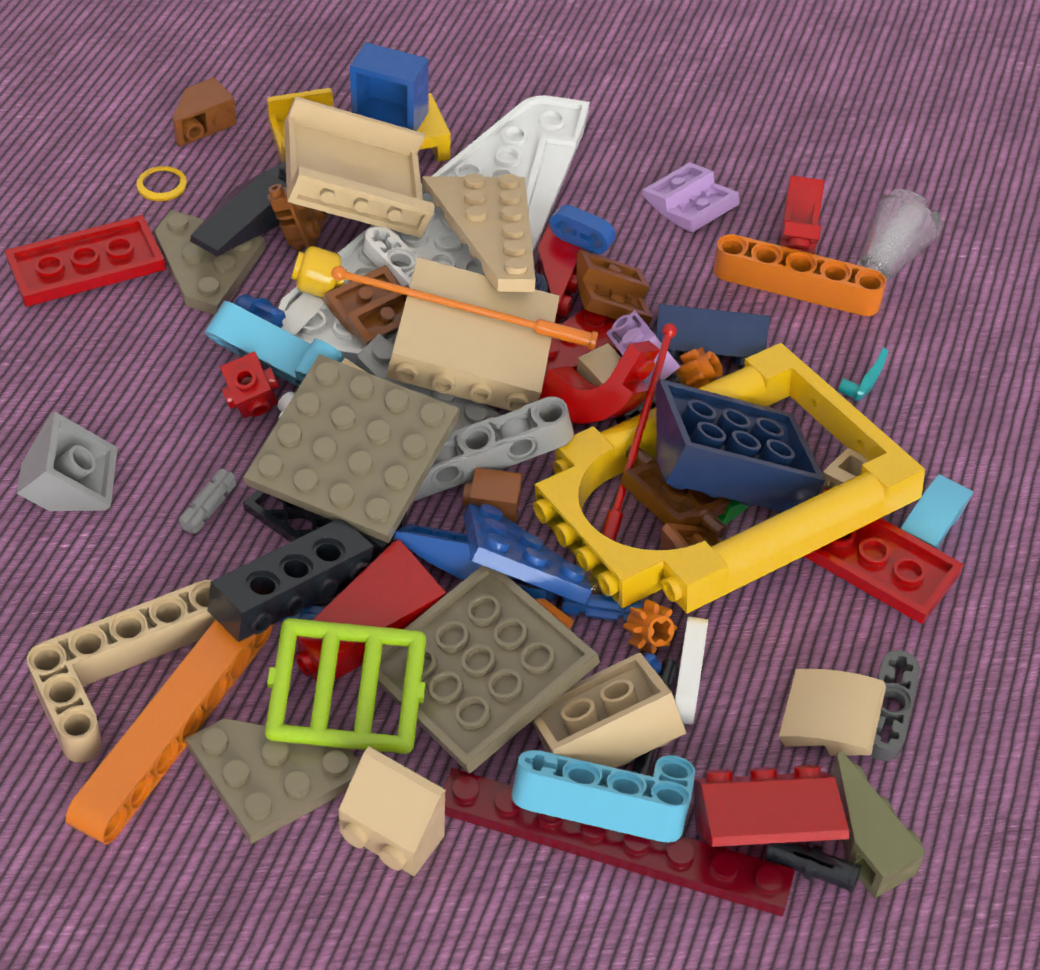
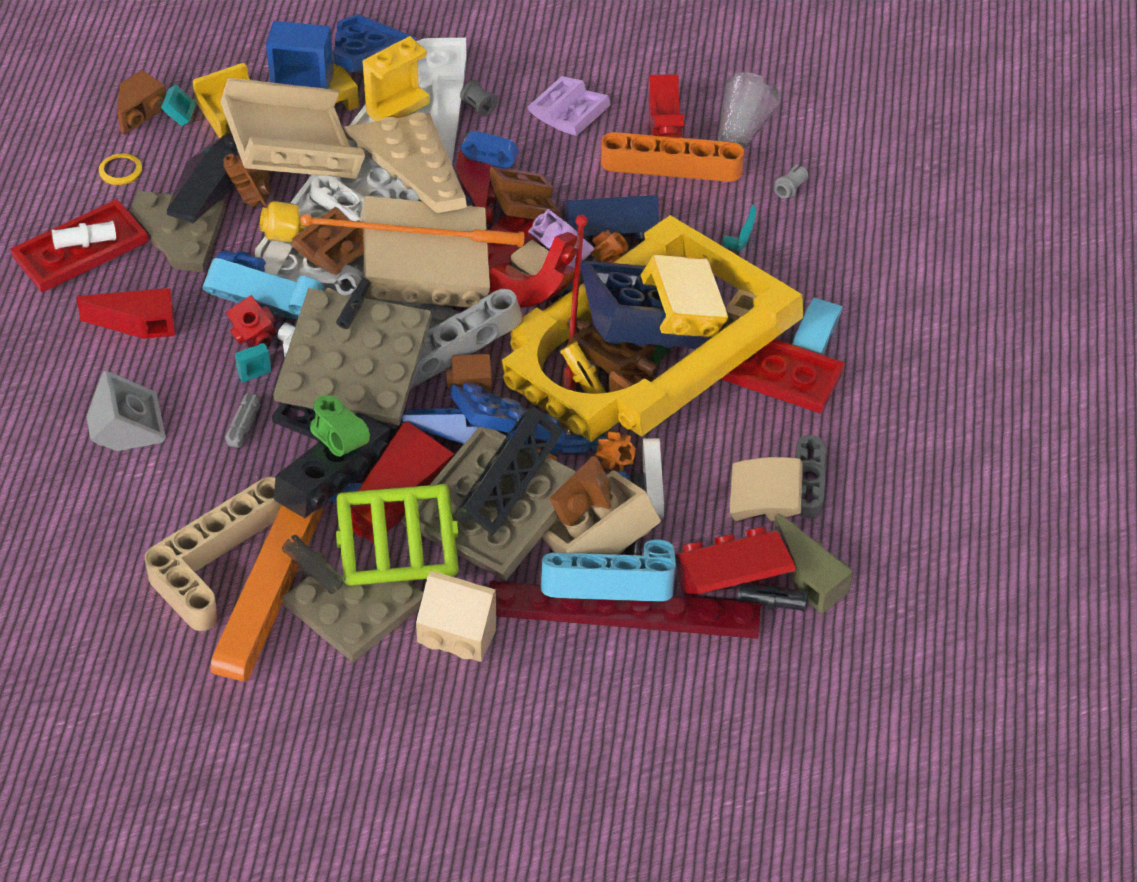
camera: 10 degrees left, 0 degrees up
(88, 248) = (84, 235): none -> white pin
(121, 349) = (131, 312): none -> red slope
(230, 705) = (313, 564): none -> clear smoke pin
(239, 432) = (253, 362): none -> teal plate
(245, 123) = (178, 105): none -> teal plate
(306, 532) = (338, 426): none -> bright green piece
(370, 378) = (356, 299): none -> black pin
(371, 359) = (343, 286): none -> light grey pin
(475, 88) = (361, 38): none -> blue plate
(490, 132) = (393, 81): none -> yellow panel
(490, 622) = (497, 468): none -> black fence
(586, 169) = (478, 98): none -> dark grey bush
(590, 674) = (581, 491): none -> dark orange slope
(623, 493) = (572, 354): none -> yellow pin
(779, 445) = (687, 295): none -> yellow panel
(932, 331) = (787, 185): none -> light grey pin

